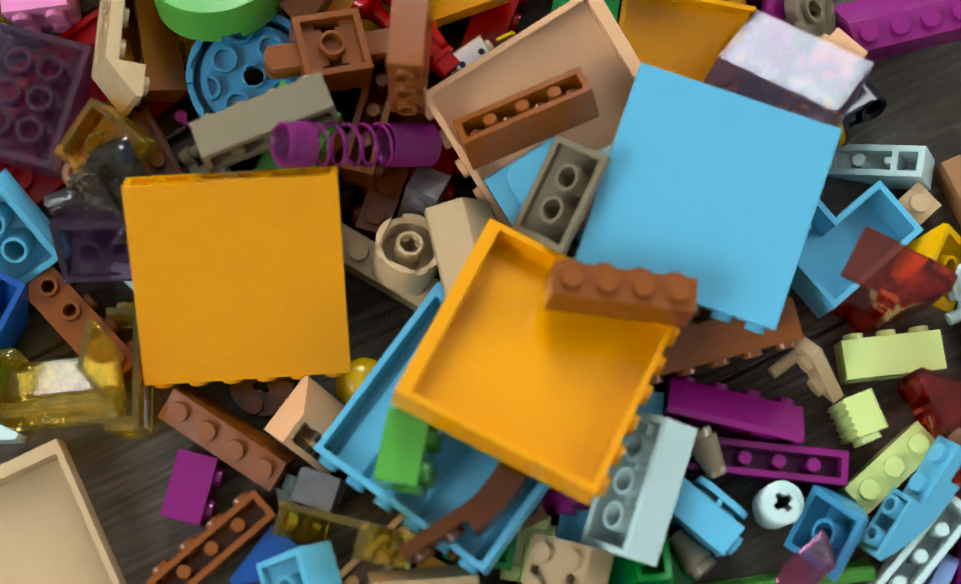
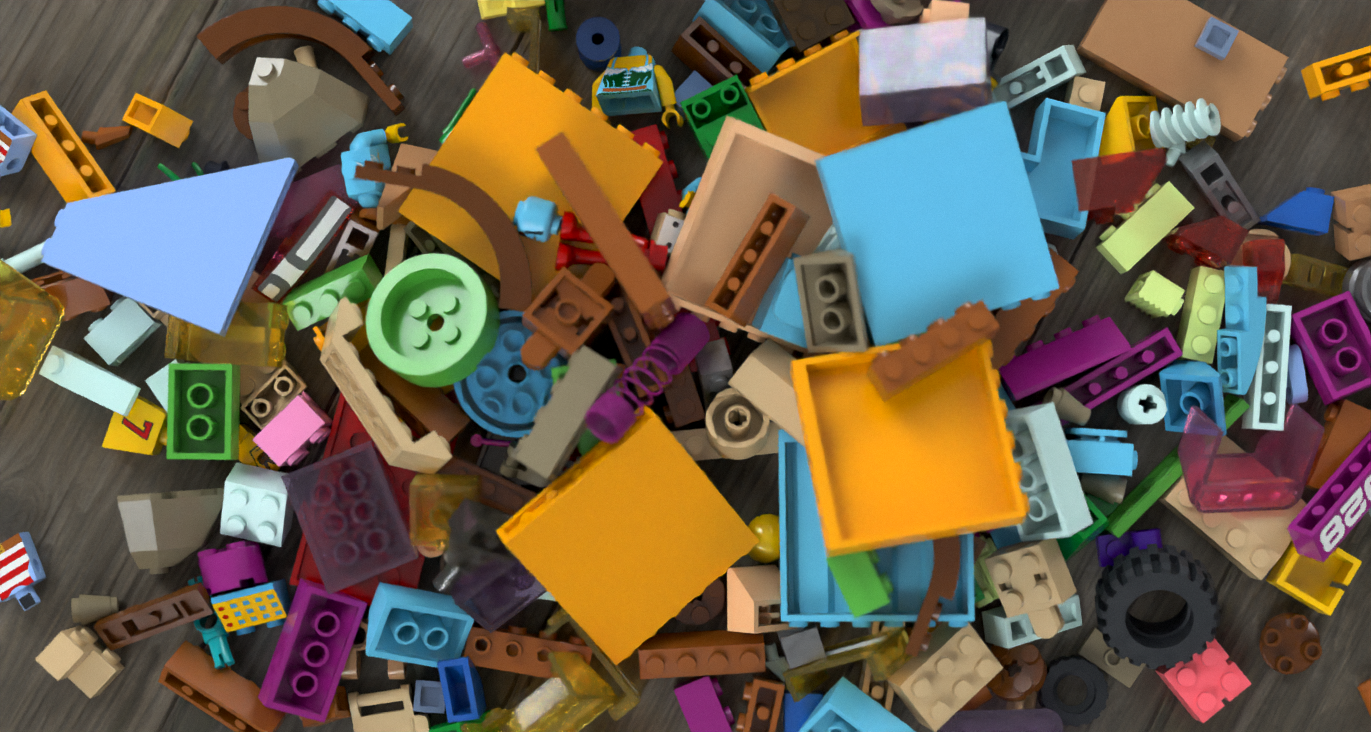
camera: 40 degrees left, 10 degrees up
(814, 363) = (1095, 278): tan plate -> none

